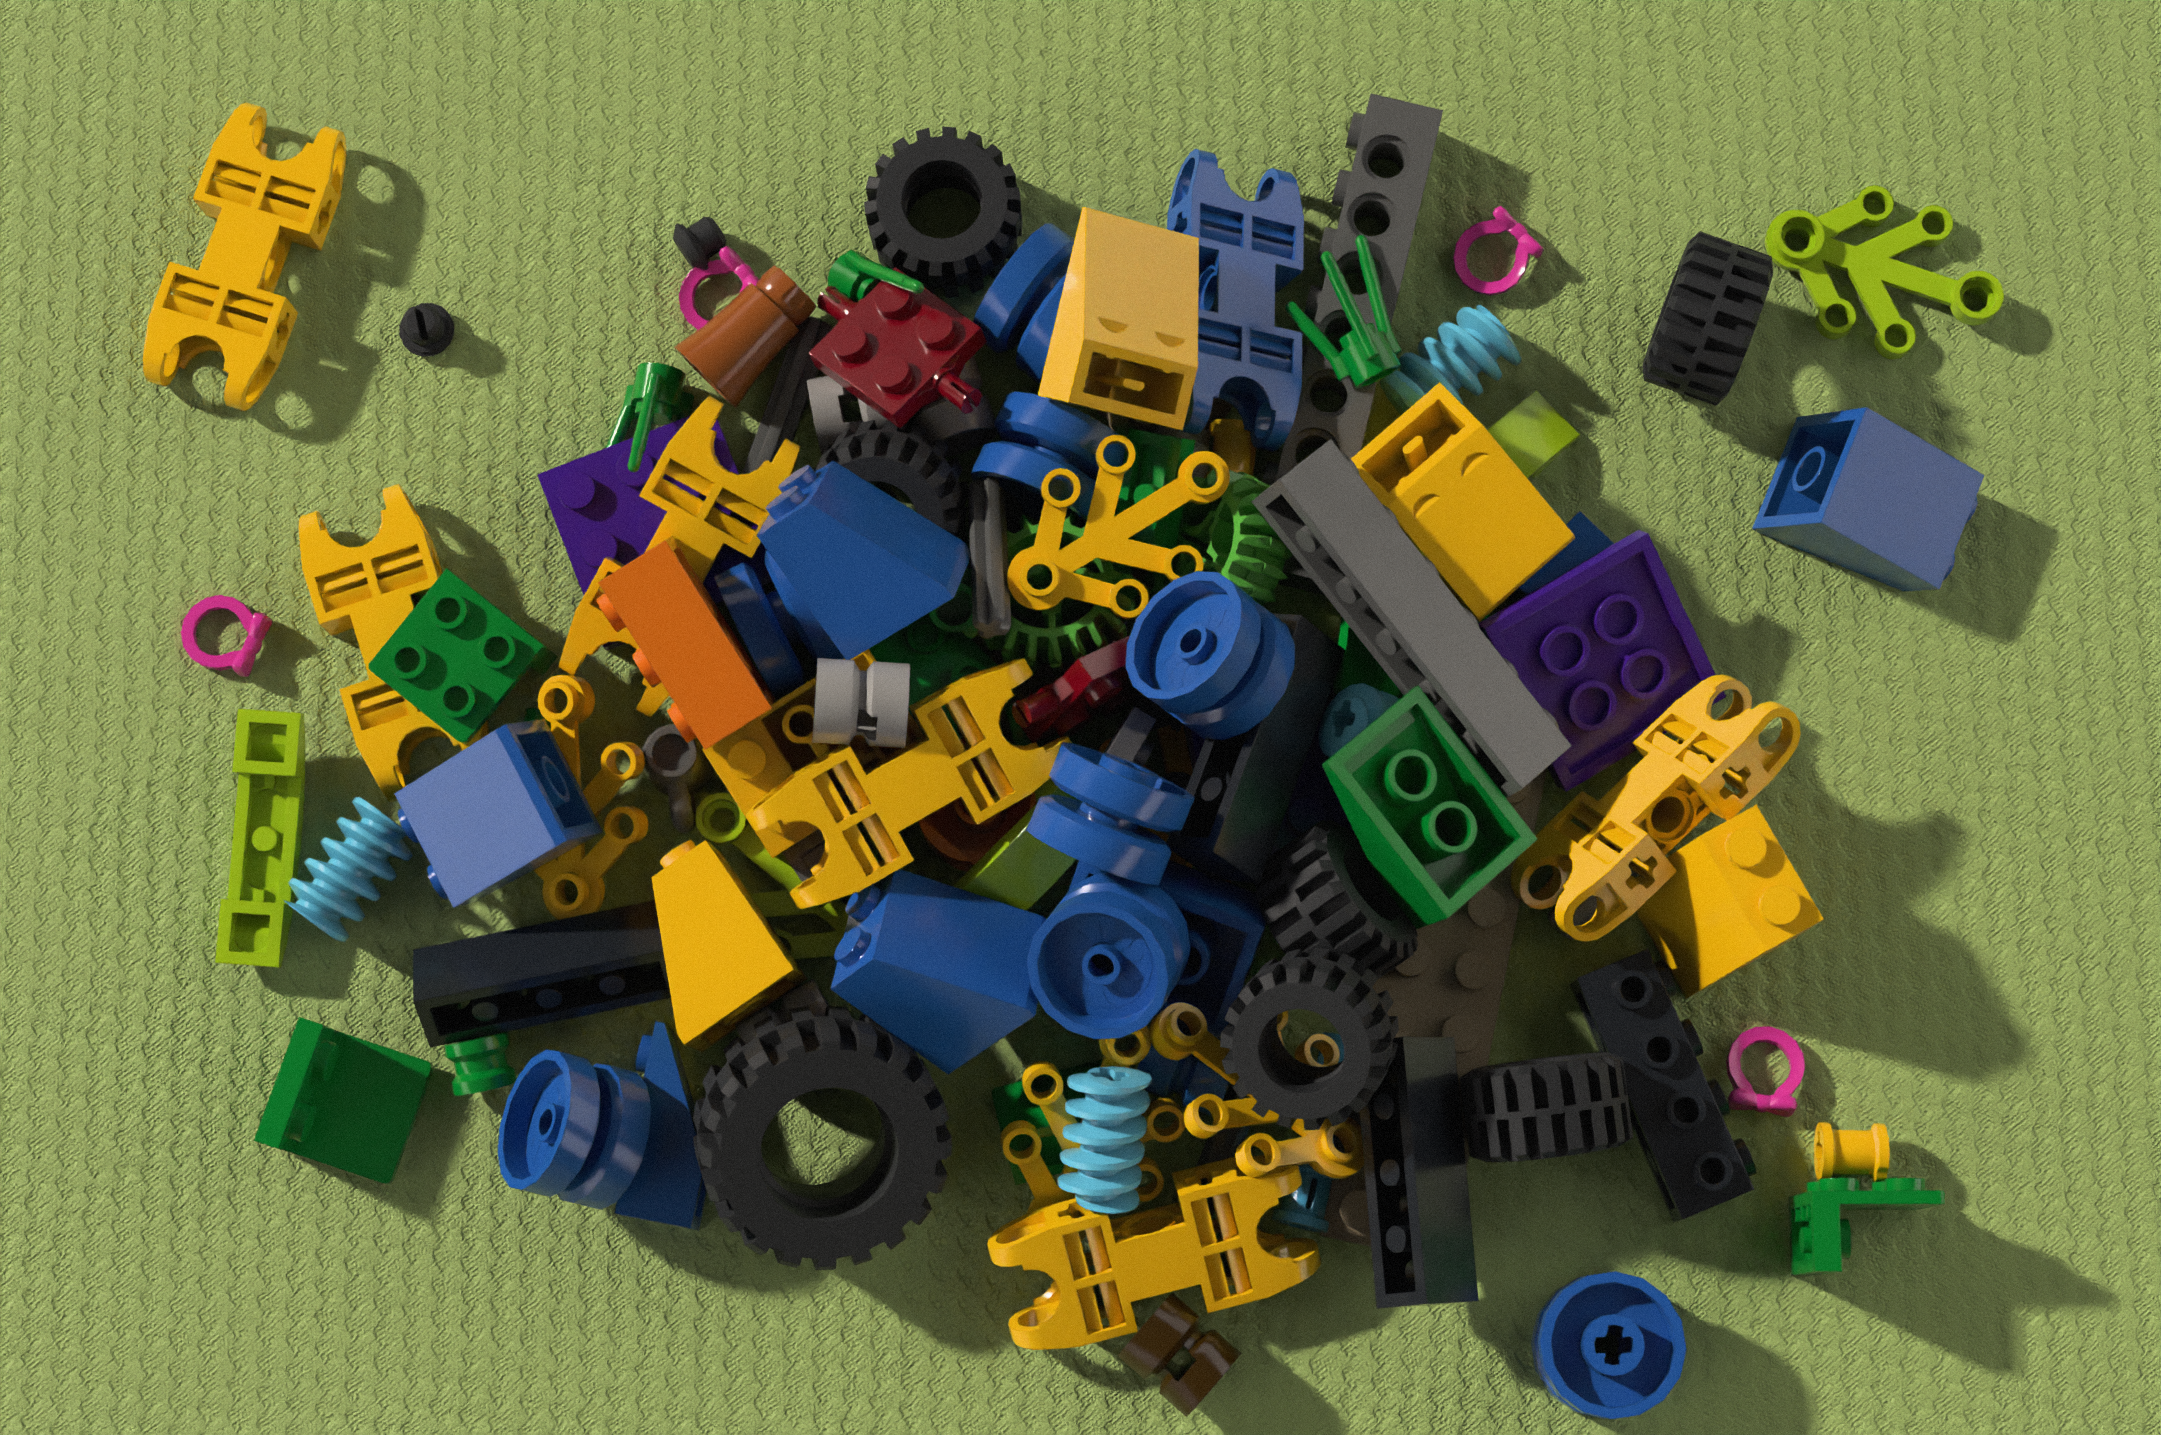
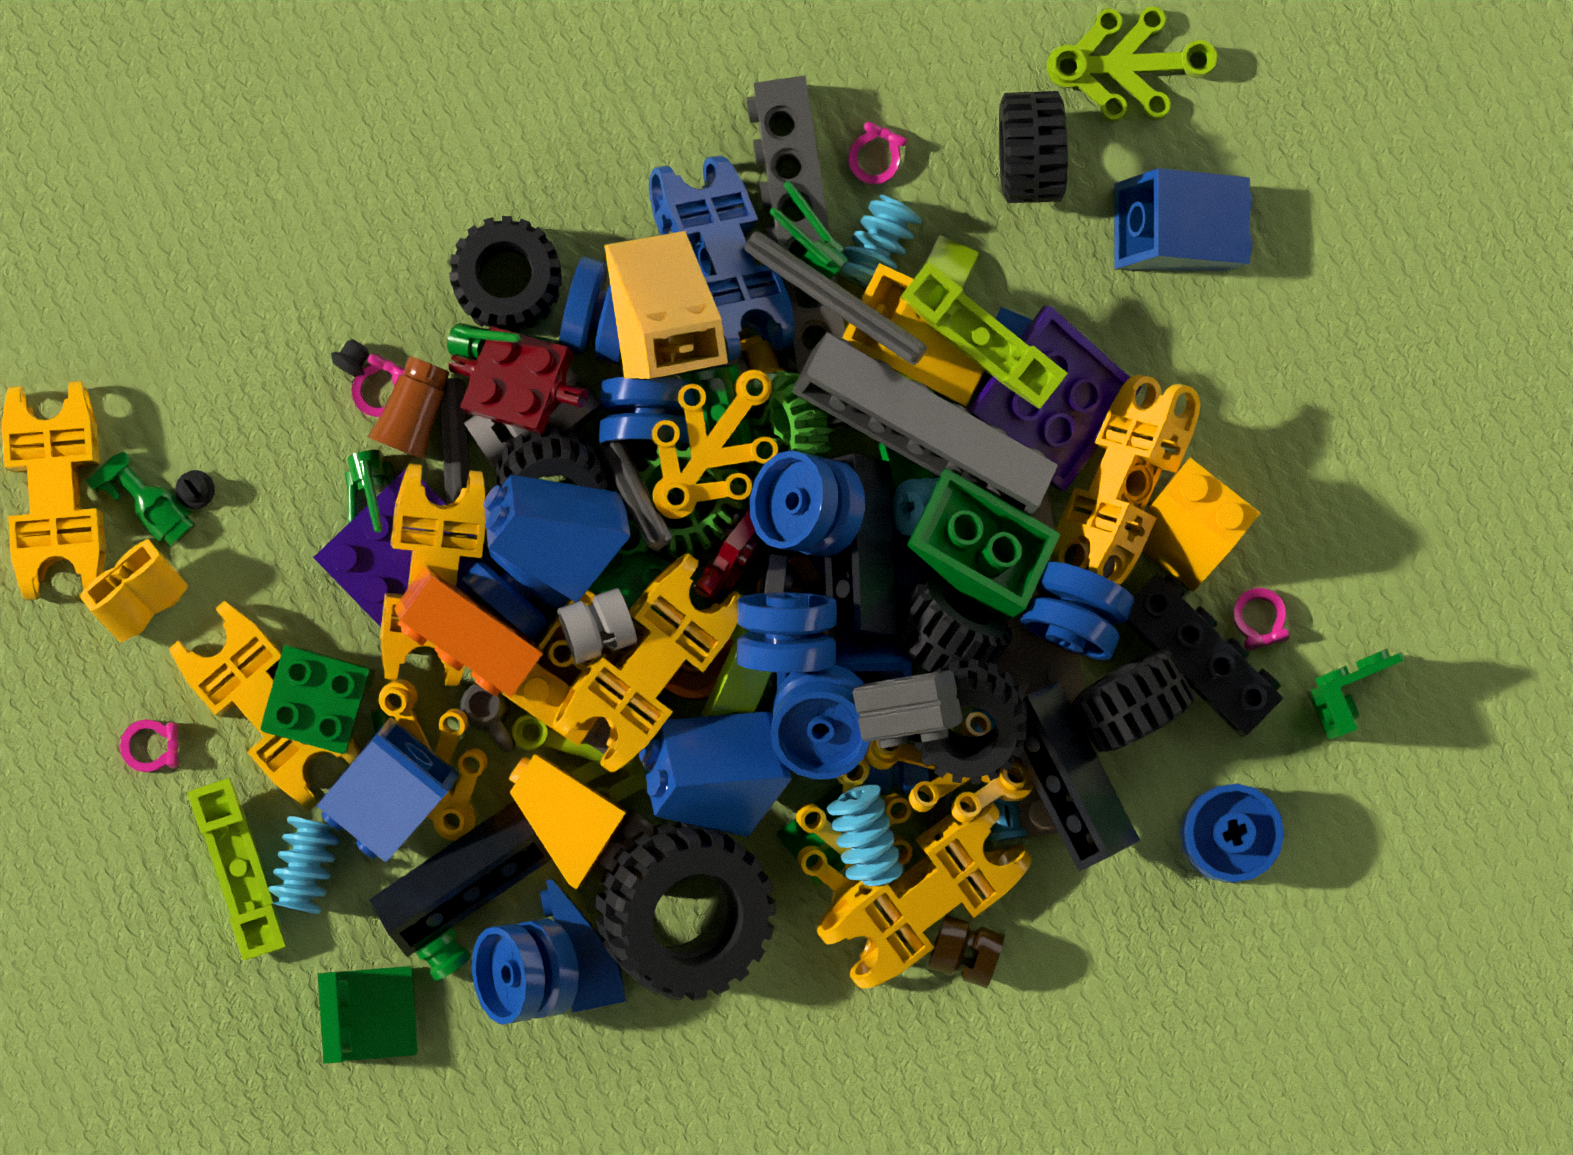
camera: 30 degrees left, 5 degrees up
(287, 423) = (134, 591): none -> yellow brick
(365, 329) = (154, 506): none -> green piece
(1232, 979) = (908, 707): none -> dark grey brick
(1363, 405) = (835, 298): none -> dark grey axle
(1519, 952) = (1077, 611): none -> blue wheel
(1536, 531) = (982, 337): none -> lime slope
(1851, 1151) = (1335, 647): yellow bush -> none

